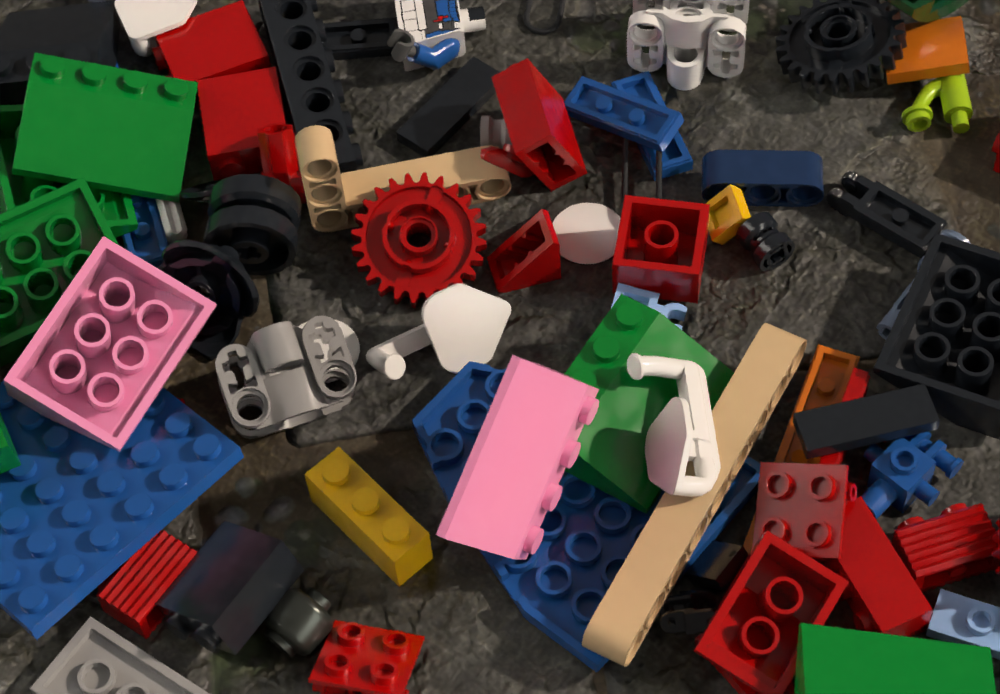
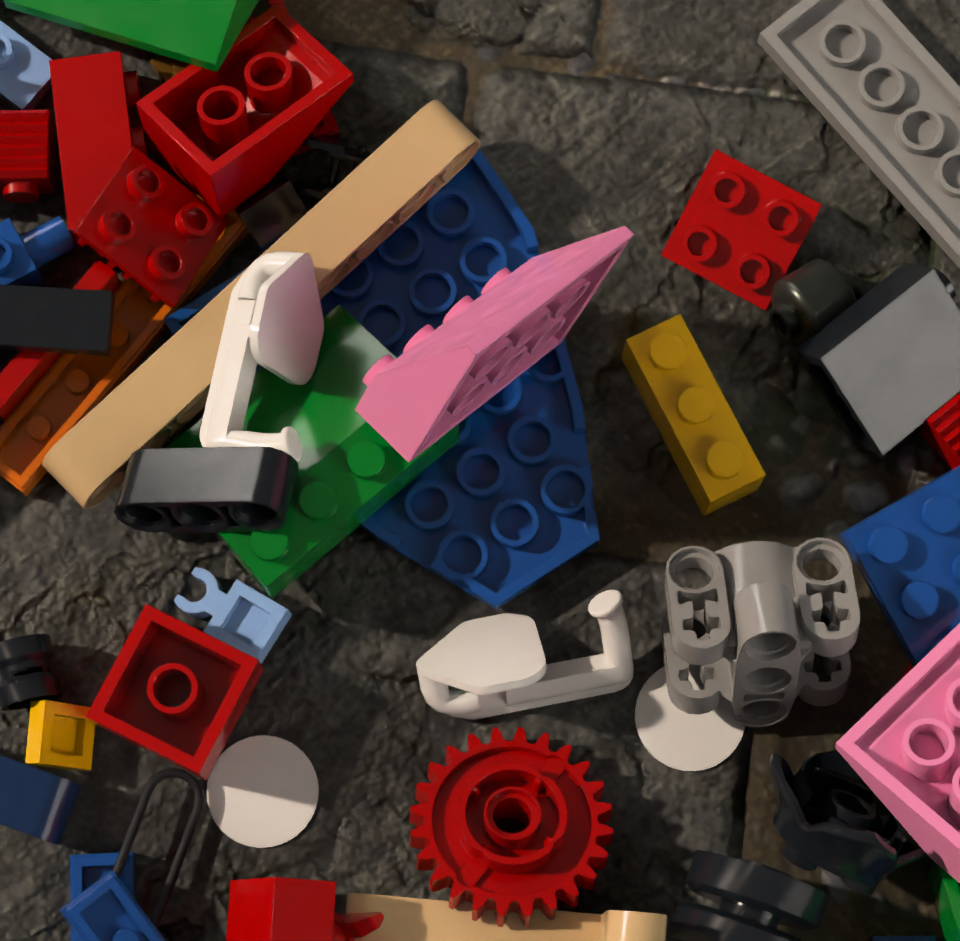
camera: 170 degrees left, 20 degrees up
(527, 256) = (362, 772): red slope -> none
(684, 330) = (207, 489): none -> black beam

